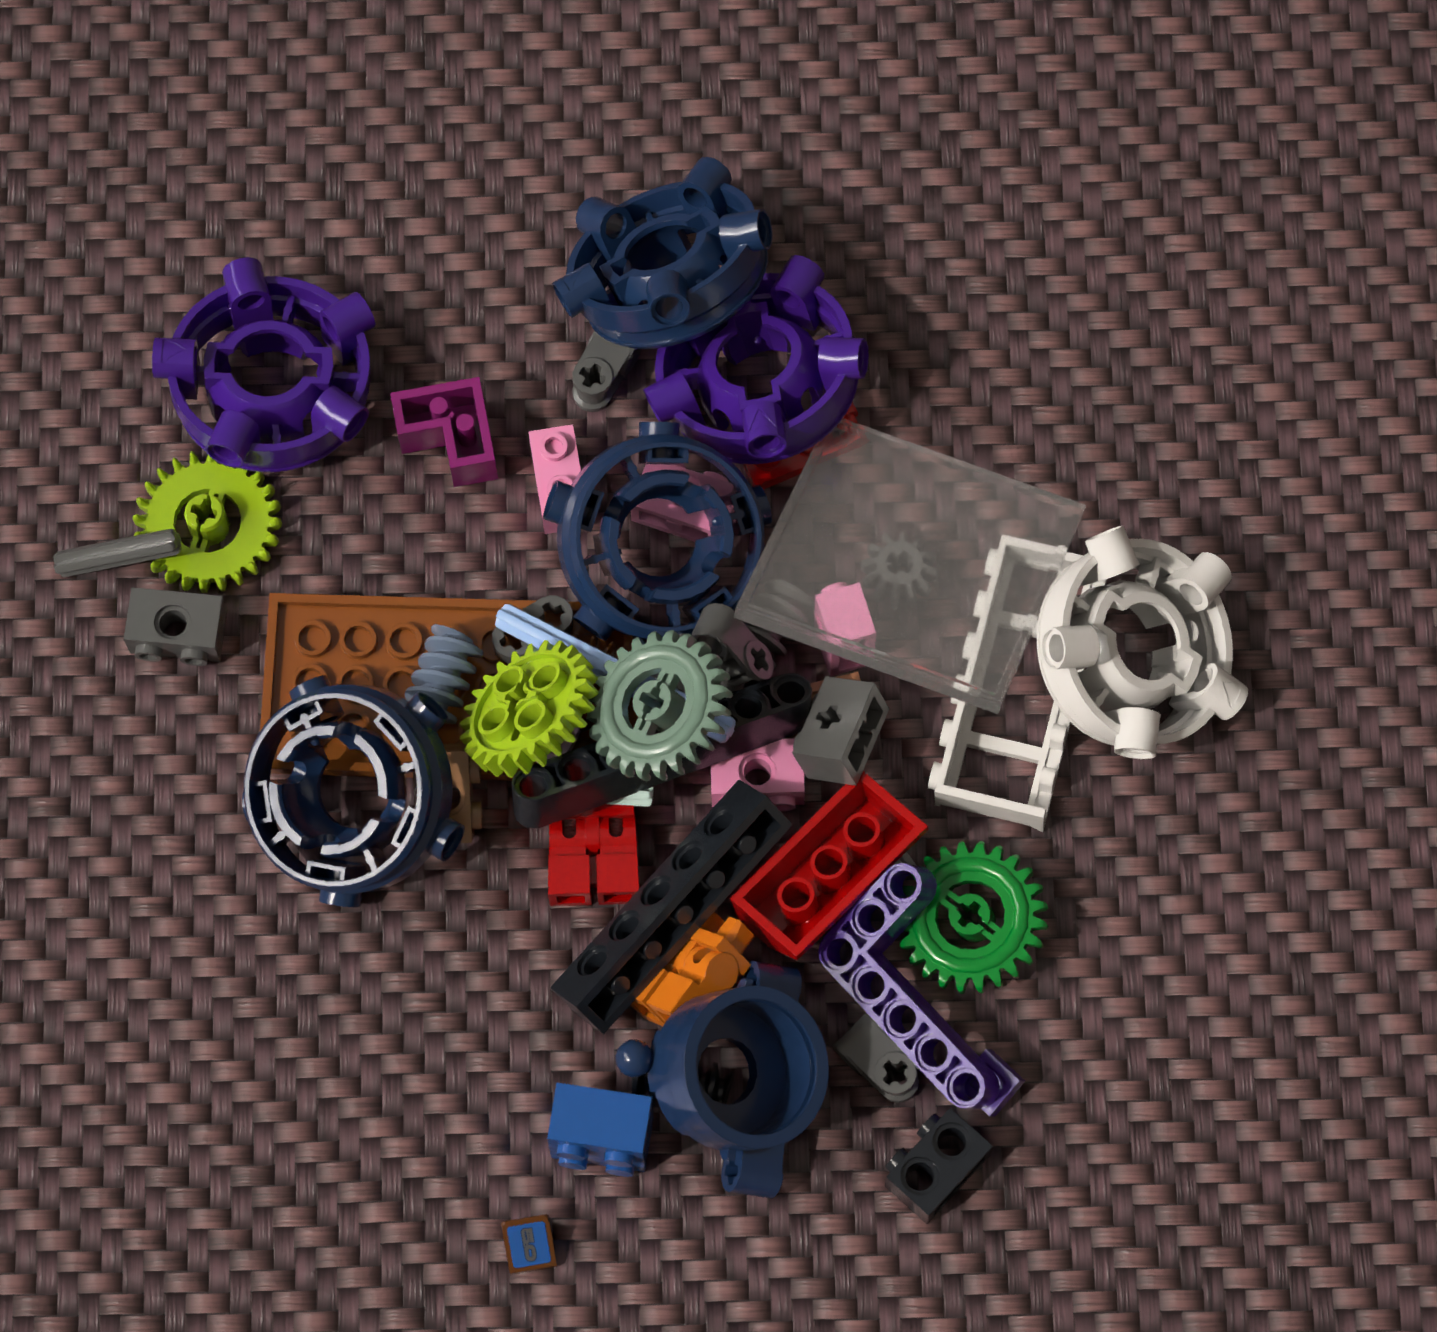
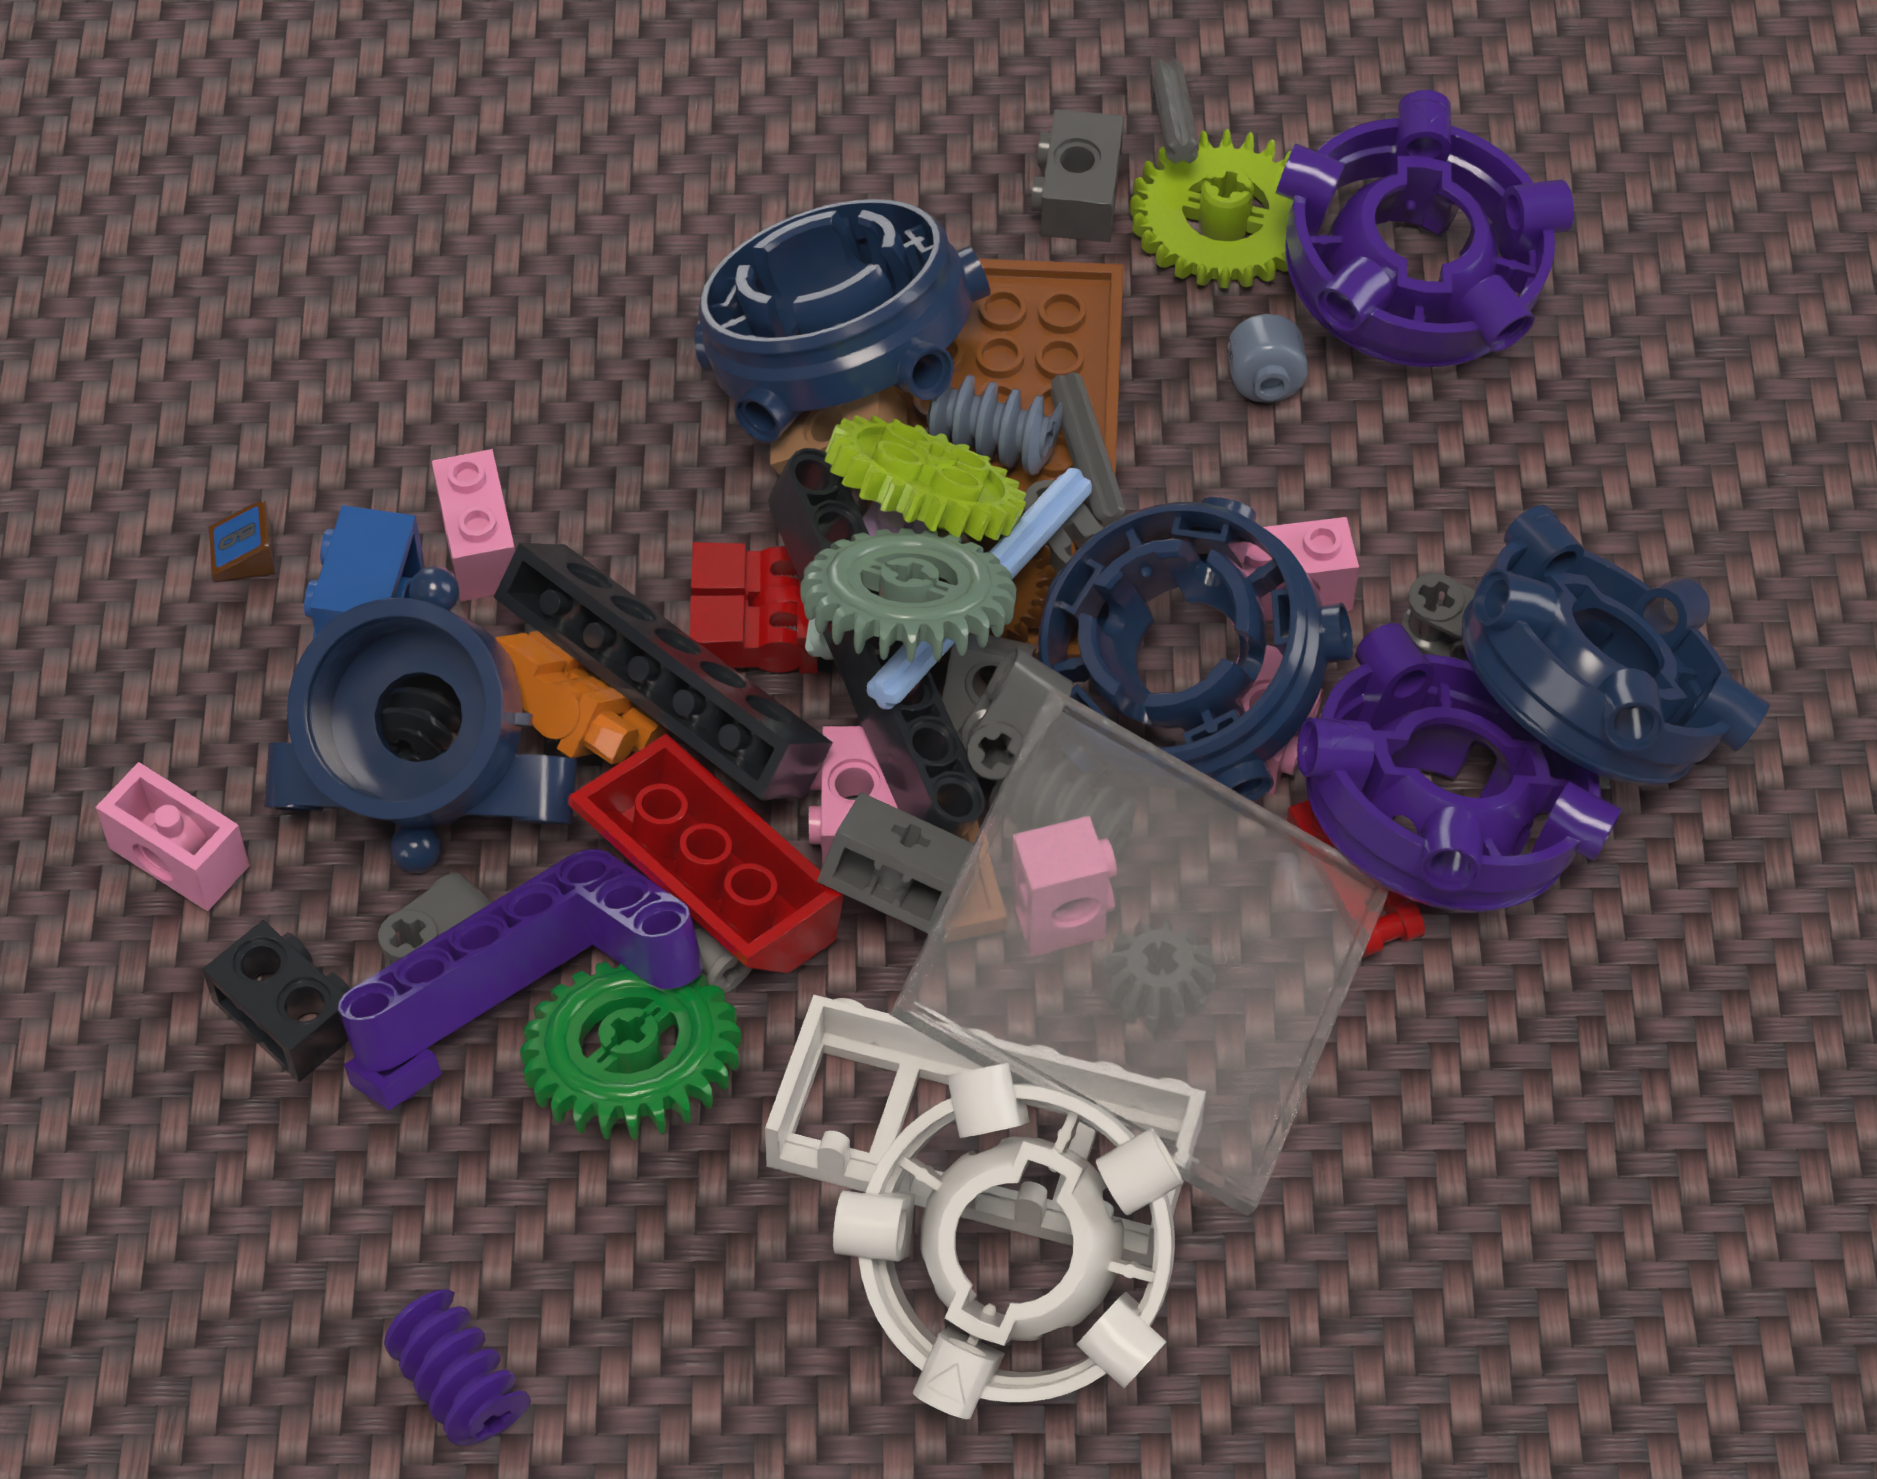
camera: 90 degrees right, 15 degrees down
(359, 491) = (1265, 353): none -> sand blue head
(450, 417) = (1360, 453): magenta brick -> none
(454, 614) = (1088, 447): none -> dark grey axle
(520, 1061) = (474, 521): none -> bright pink brick
(811, 1254) = (173, 836): none -> bright pink brick
(1221, 1014) = (451, 1370): none -> dark purple piece

